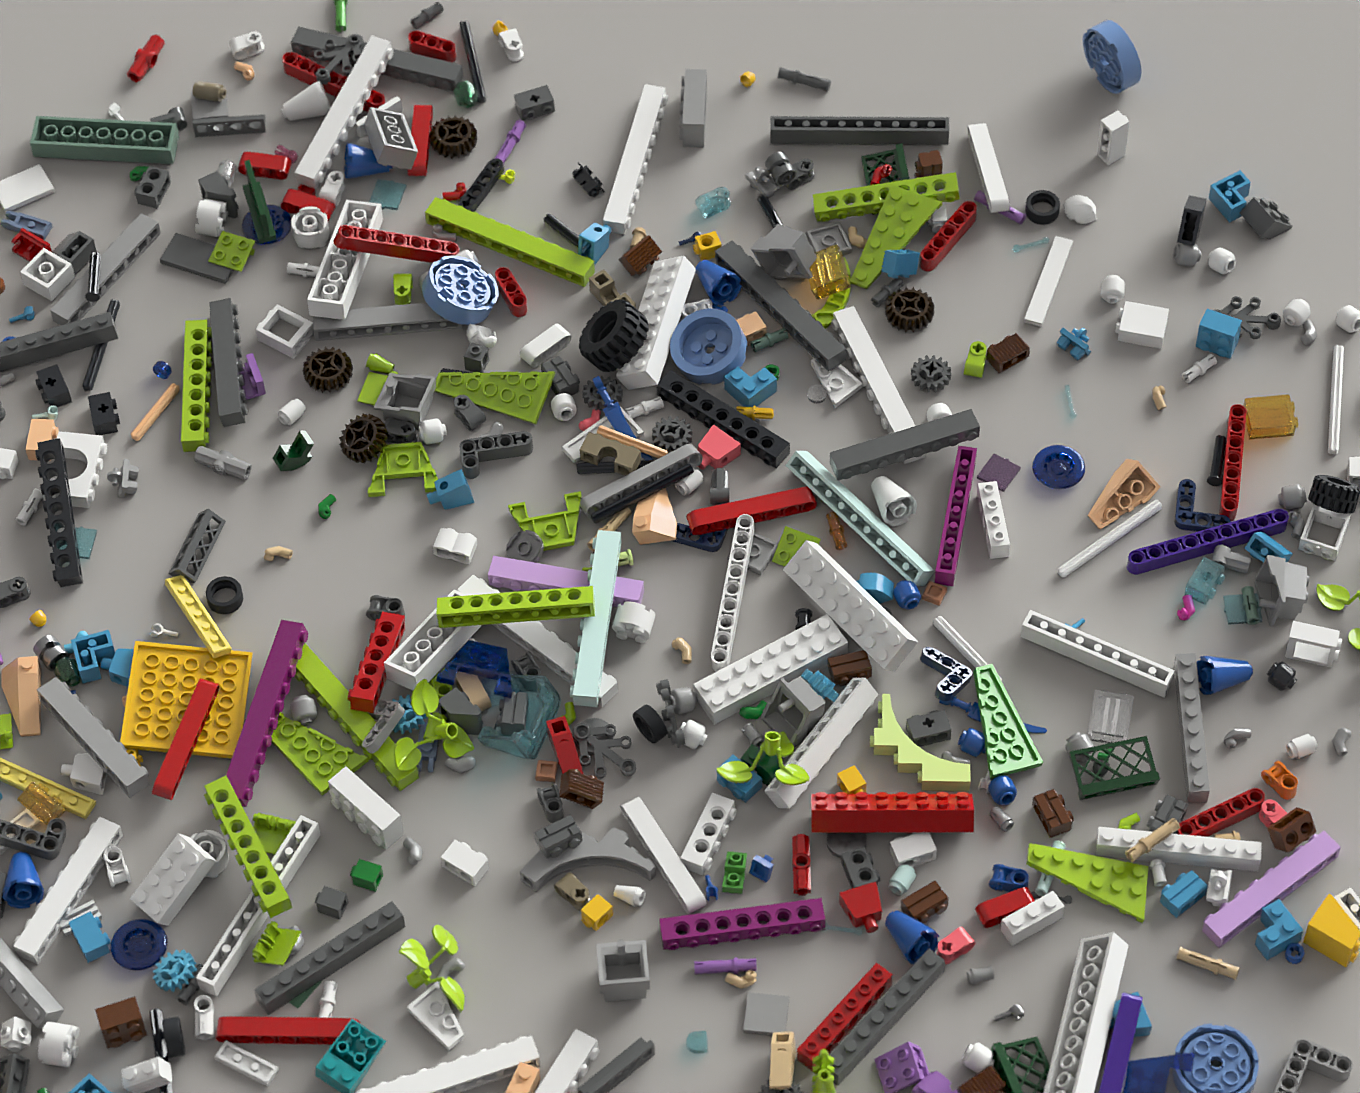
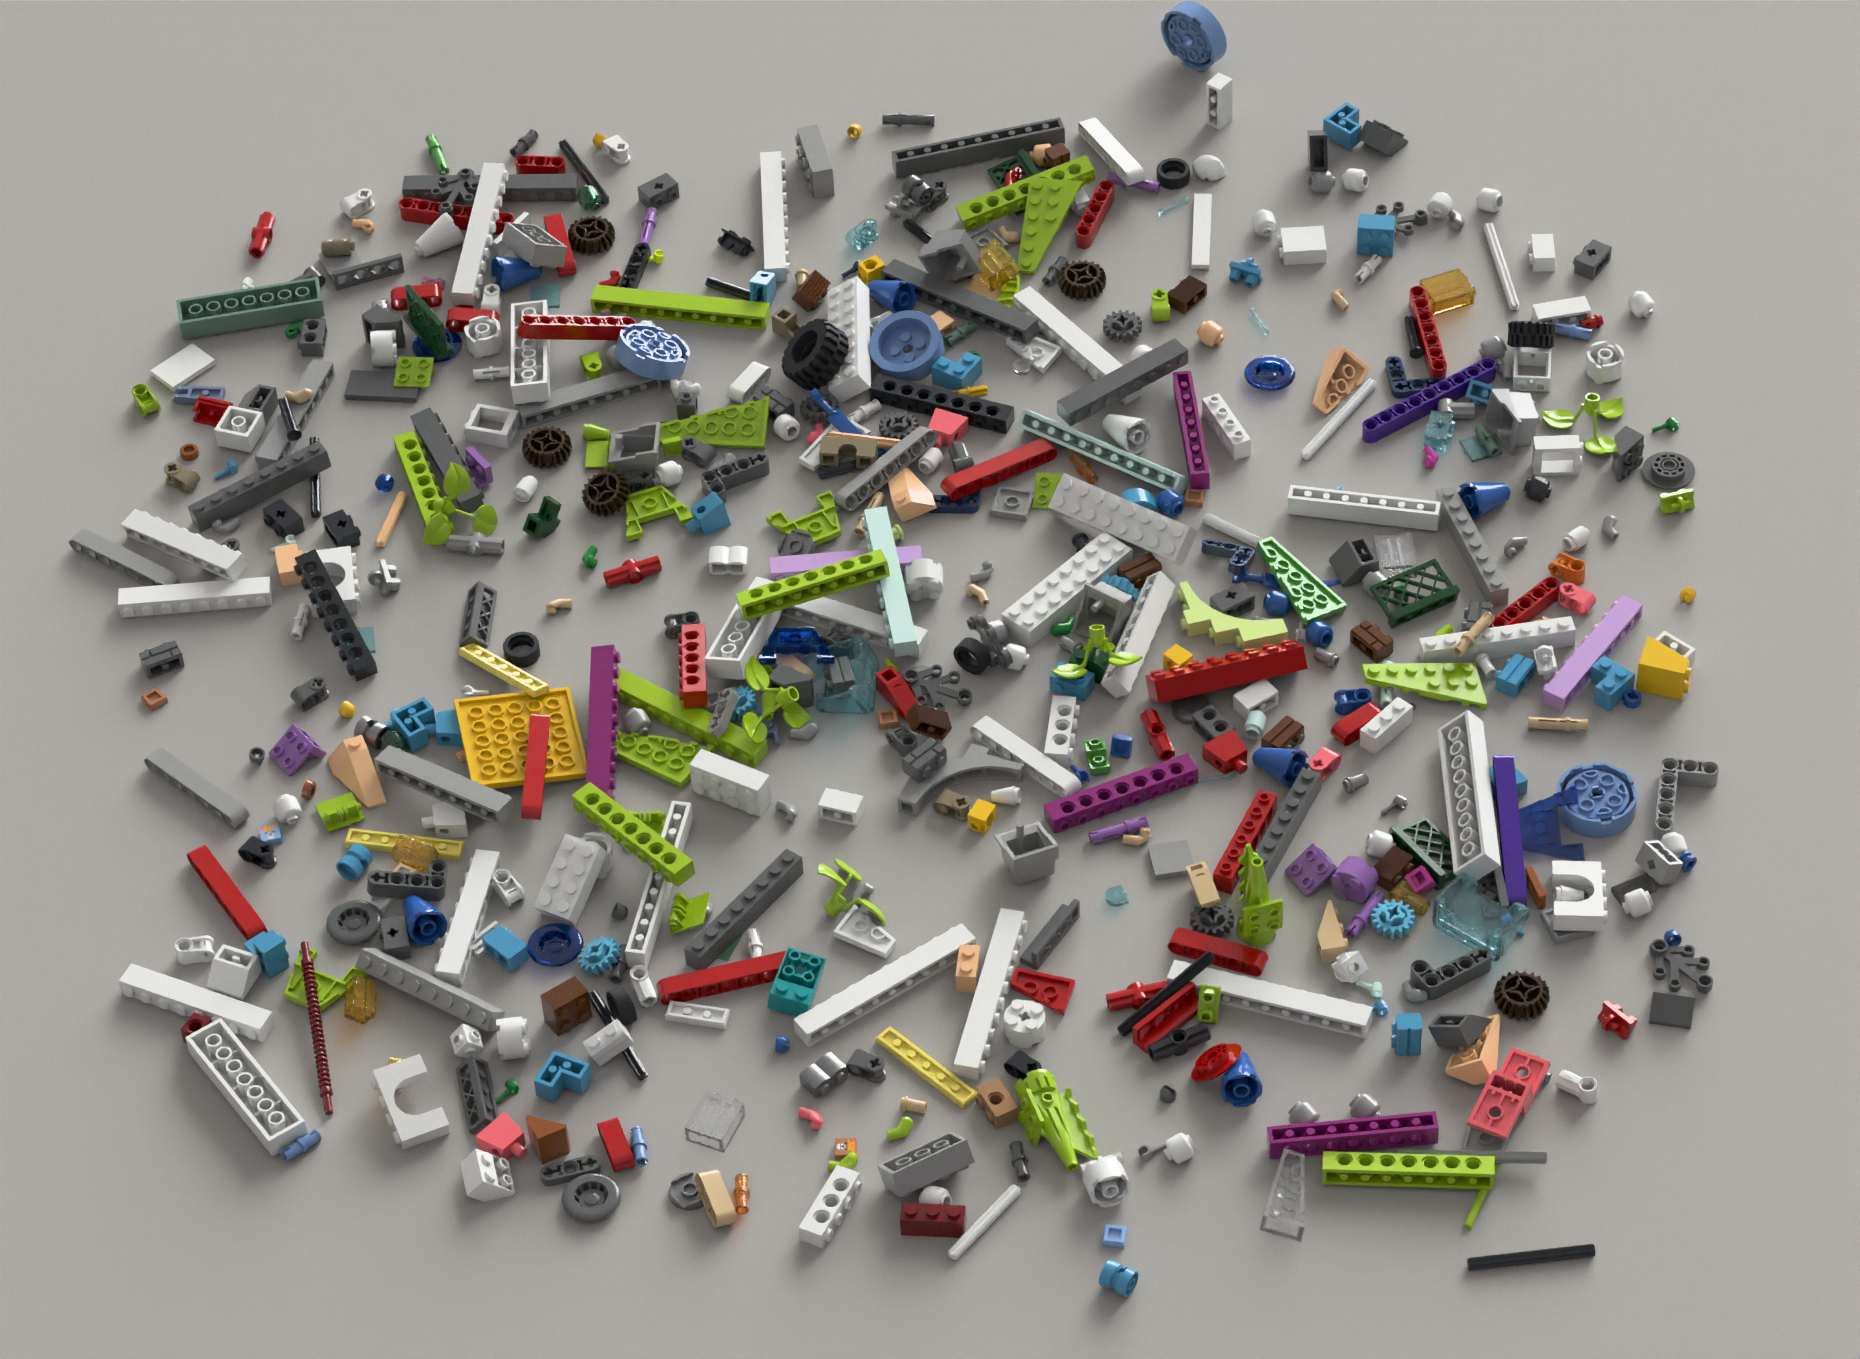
camera: 15 degrees left, 10 degrees down
(112, 255) = (299, 397): none -> tan arm
(211, 400) = (456, 482): none -> lime plant
(213, 923) = (620, 911): none -> dark grey hinge
(331, 902) = (727, 867): dark grey brick -> none
(359, 533) = (632, 571): none -> red piece
(366, 875) = (751, 838): green brick -> none
(446, 399) = (672, 446): none -> lime tile
(511, 292) = (700, 347): red beam -> none
(642, 493) = (891, 476): black axle -> none
(698, 626) = (984, 574): none -> light grey arm
(732, 584) = (1007, 535): white beam -> none
(900, 263) = (1060, 242): dark azure brick -> none
(917, 148) = (1038, 154): none -> light nougat head
(999, 470) = (1214, 386): clear purple piece -> none
(1015, 405) = (1210, 333): none -> light nougat head
(1066, 714) = (1354, 561): none -> dark grey slope
(1292, 830) = (1594, 600): reddish brown brick -> none

